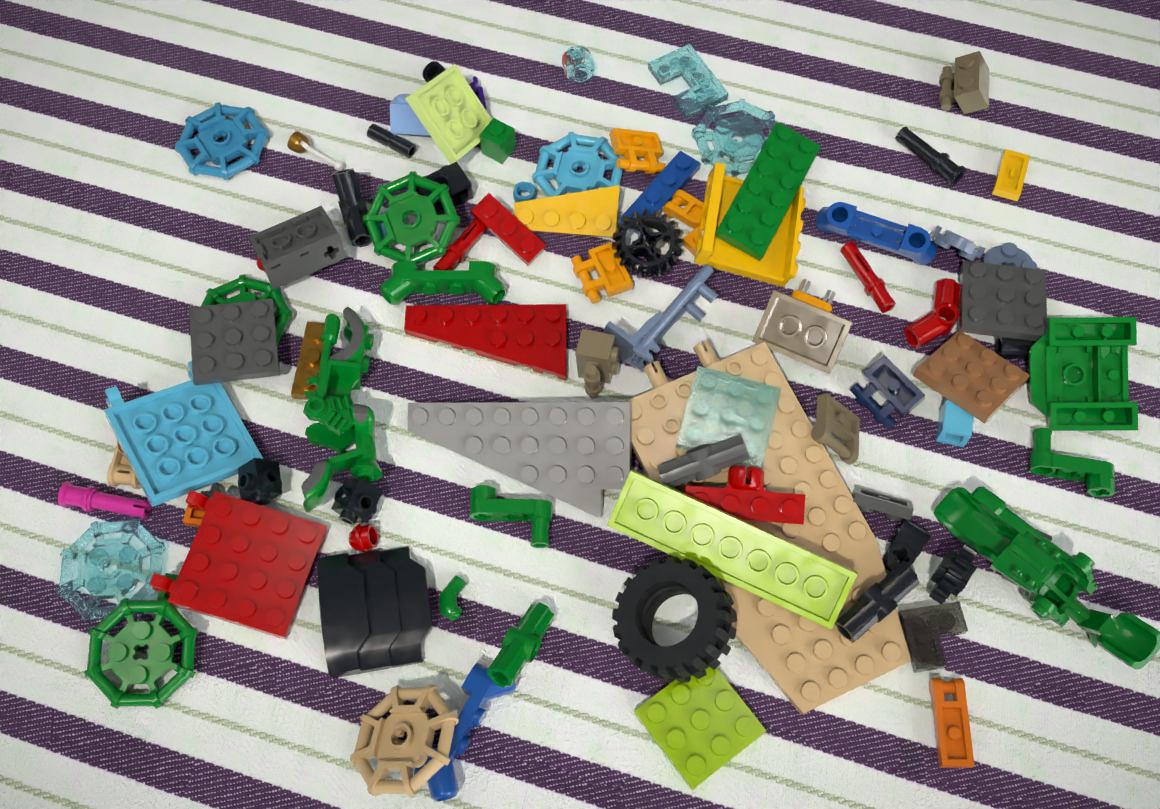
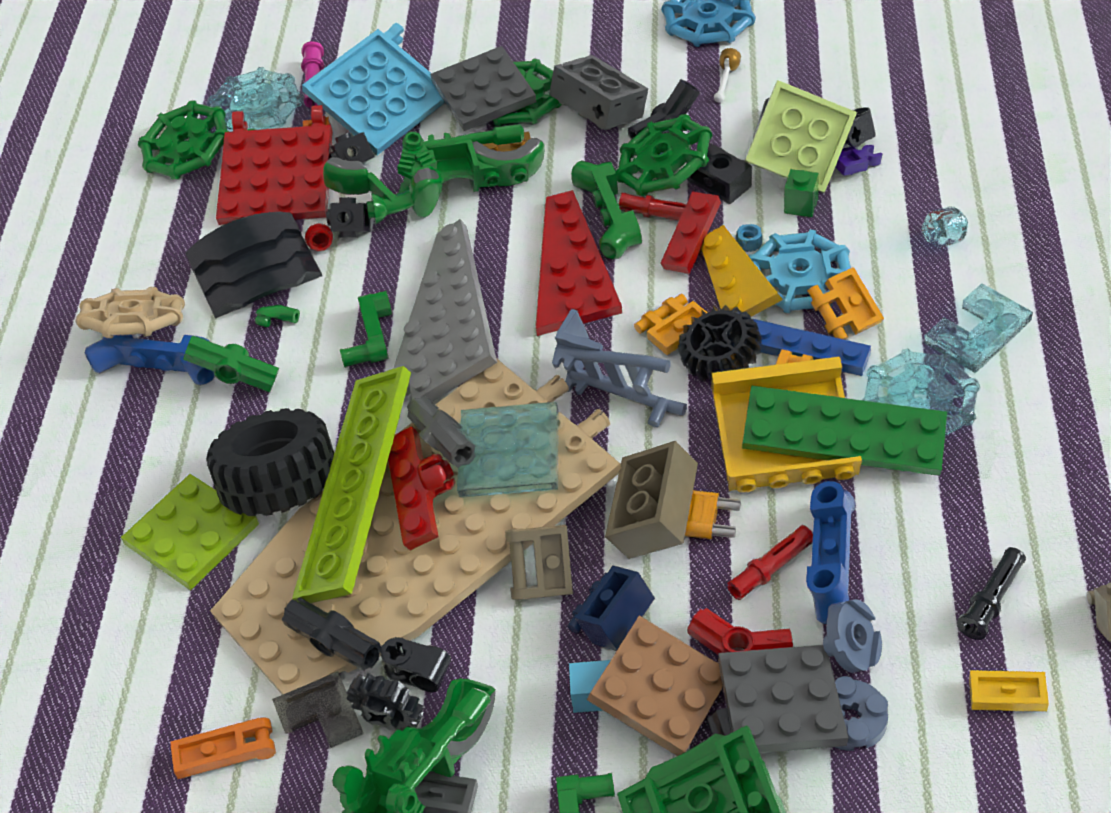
camera: 80 degrees right, 15 degrees down
(596, 360) = (548, 320): dark tan brick -> none
(893, 507) = (465, 631): dark grey plate -> none

